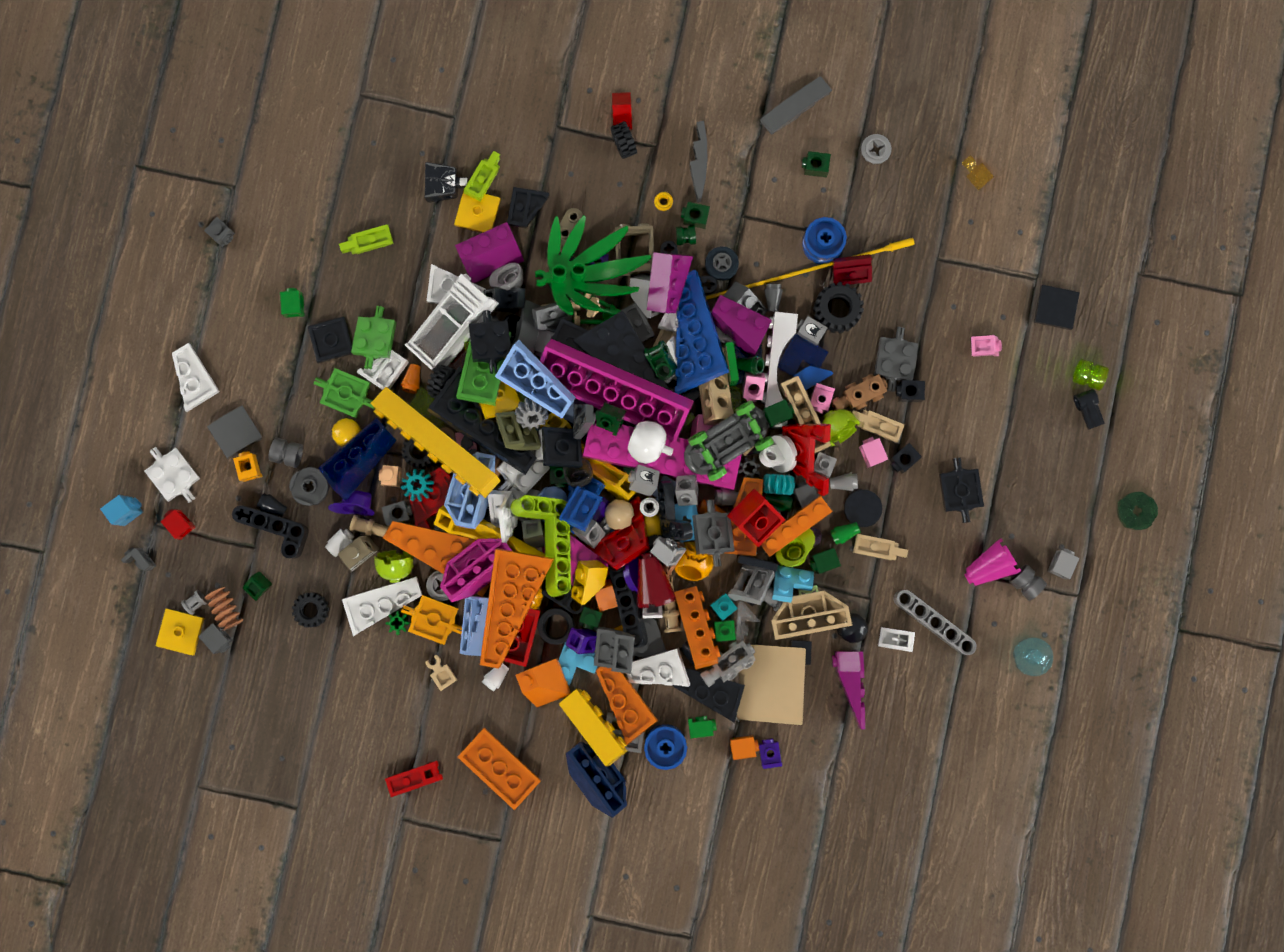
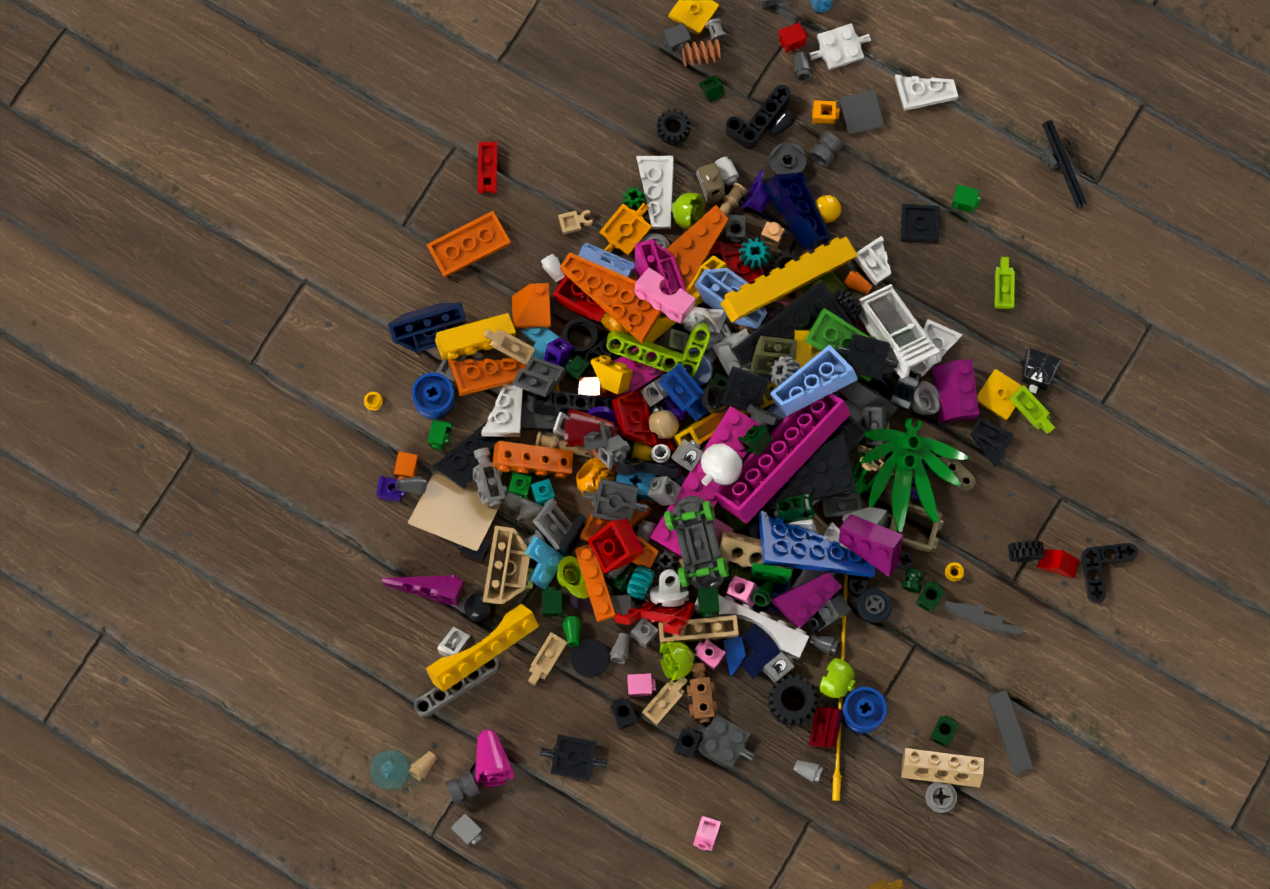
camera: 105 degrees right, 10 degrees down
(208, 503) = (802, 68): none -> dark grey cone
(225, 220) = (1064, 164): none -> black axle
(344, 392) = (865, 219): bright green plate -> none
(373, 337) = (909, 261): bright green plate -> none
(507, 538) = (675, 306): none -> bright pink arch
(592, 689) = (510, 345): none -> tan hinge
(607, 75) = (1100, 560): none -> black beam
(665, 568) = (597, 439): none -> dark grey bracket
(688, 803) = (373, 401): none -> yellow plate
(761, 733) = (412, 485): none -> dark grey cone
(806, 270) = (838, 680): none -> lime cylinder
(851, 154) = (942, 767): none -> tan brick
(895, 273) = (809, 770): none -> light grey cone
(927, 629) = (454, 668): none -> yellow arch
(1019, 626) = (422, 766): none -> tan cone

